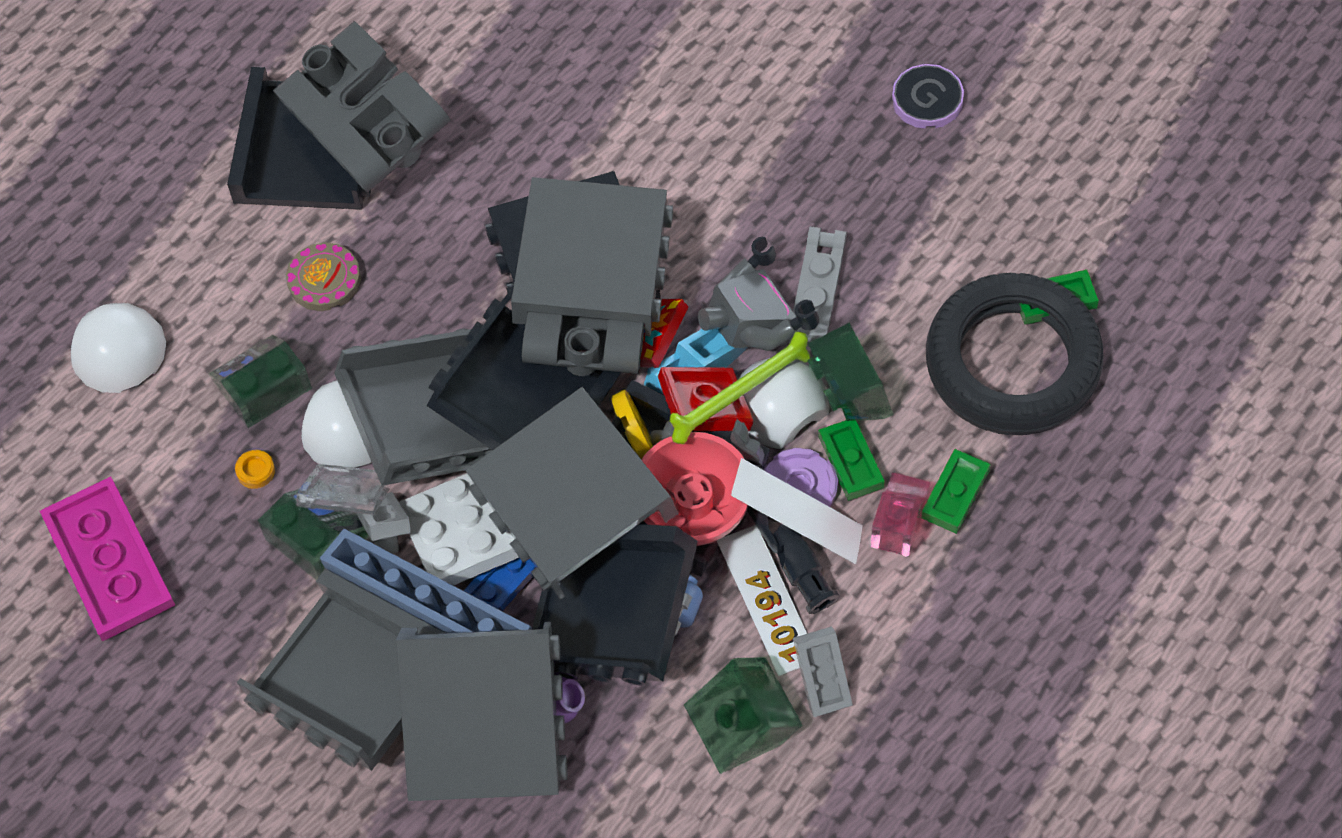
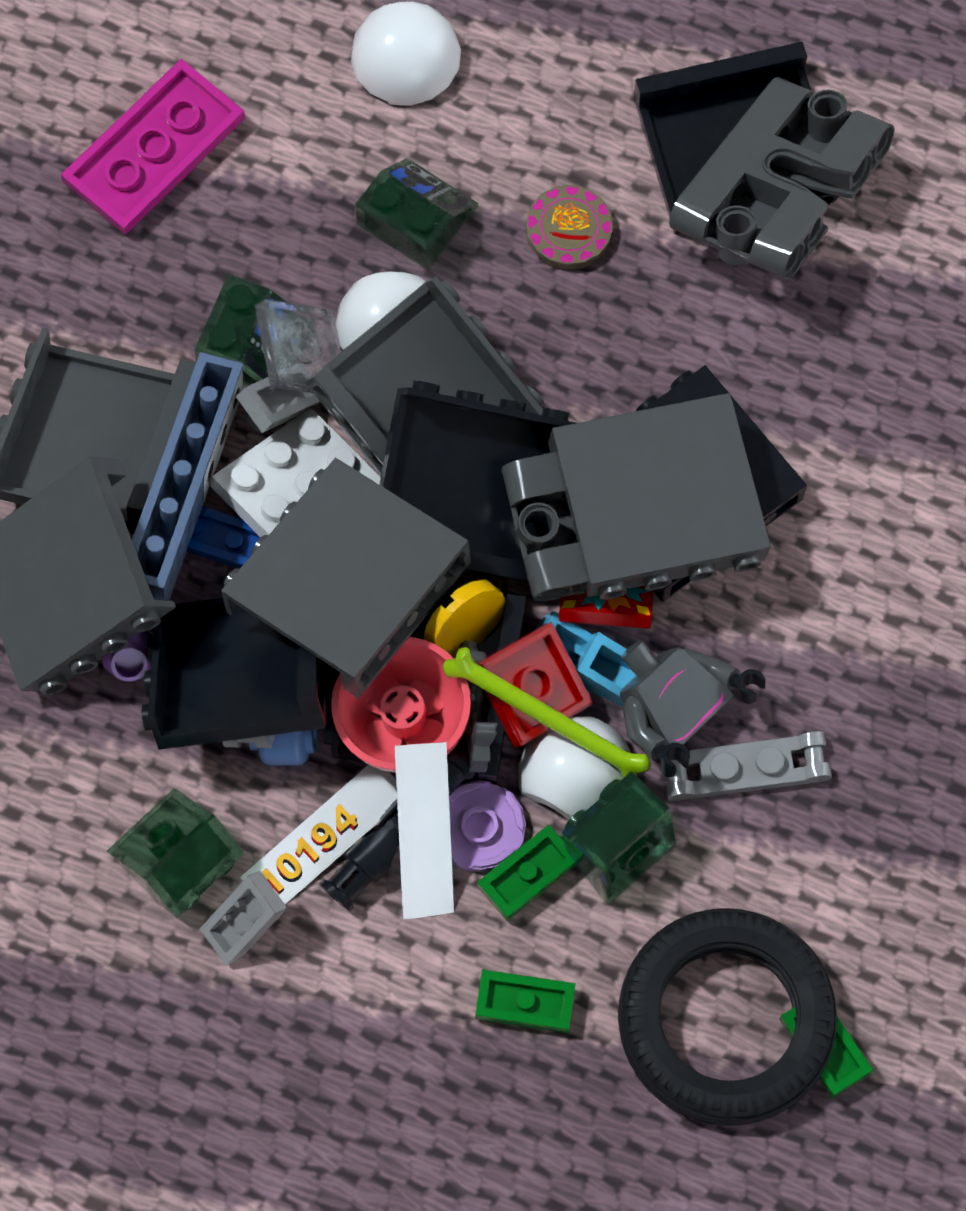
camera: 65 degrees right, 10 degrees up
(255, 469) = (307, 250): light orange tile -> none
(899, 514) = (471, 944): clear pink arch -> none

